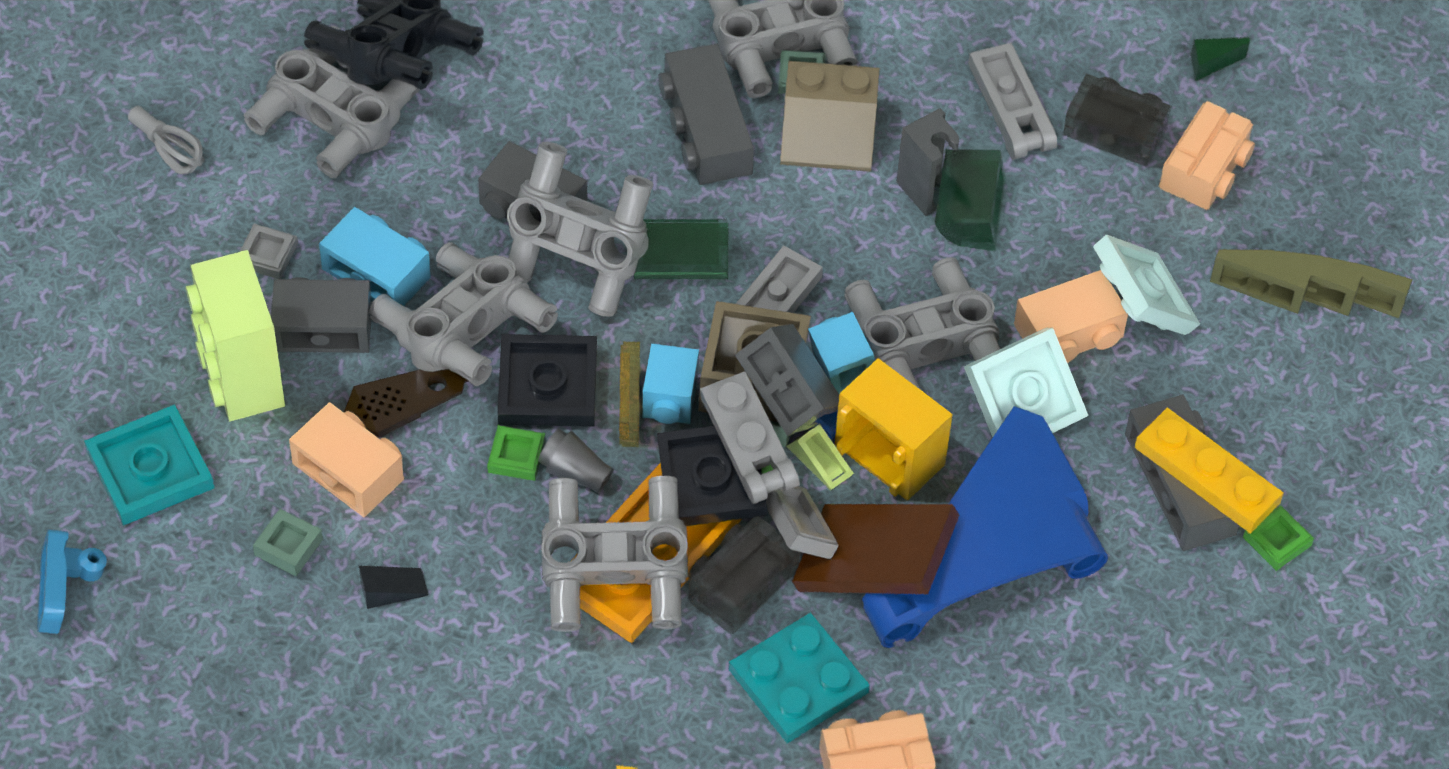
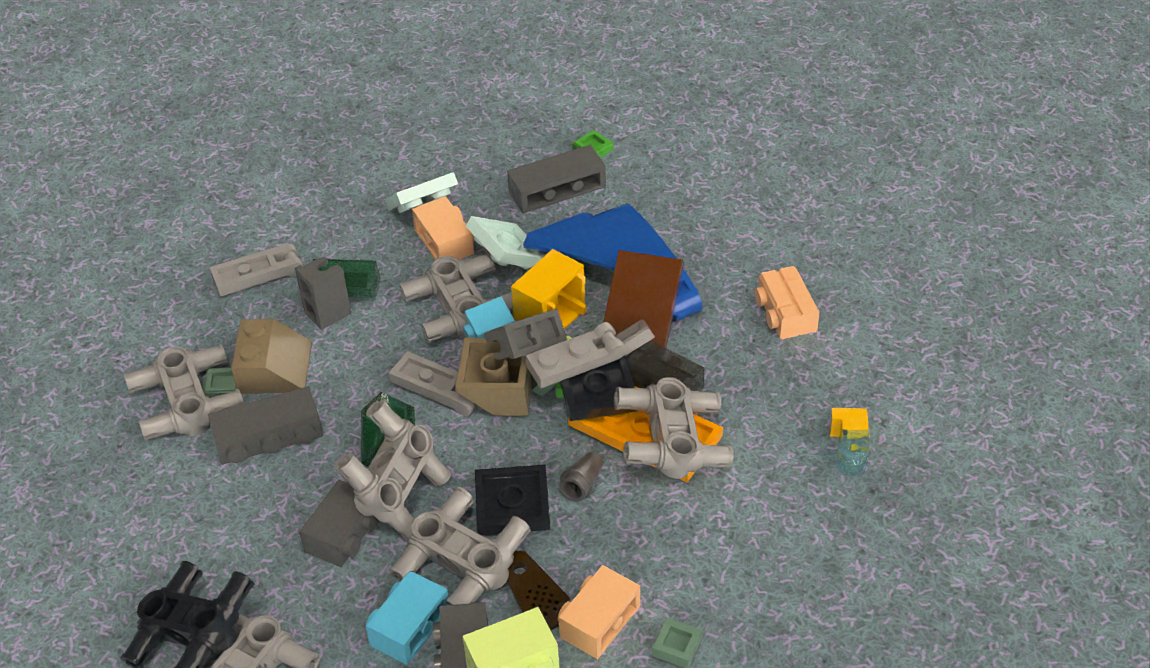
camera: 90 degrees left, 10 degrees down
(391, 584) = (701, 578): black piece -> none
(516, 453) = (574, 516): bright green tile -> none
(629, 394) = (523, 447): clear yellow tile -> none
(670, 384) = (516, 422): medium azure brick -> none
(799, 677) = (732, 349): teal plate -> none
(1117, 119) = (277, 215): clear smoke brick -> none
(1207, 155) = (309, 175): light nougat brick -> none
(1209, 470) = (565, 155): yellow plate -> none
(1215, 54) = (222, 178): dark green piece -> none
(1292, 277) = (409, 129): olive slope -> none

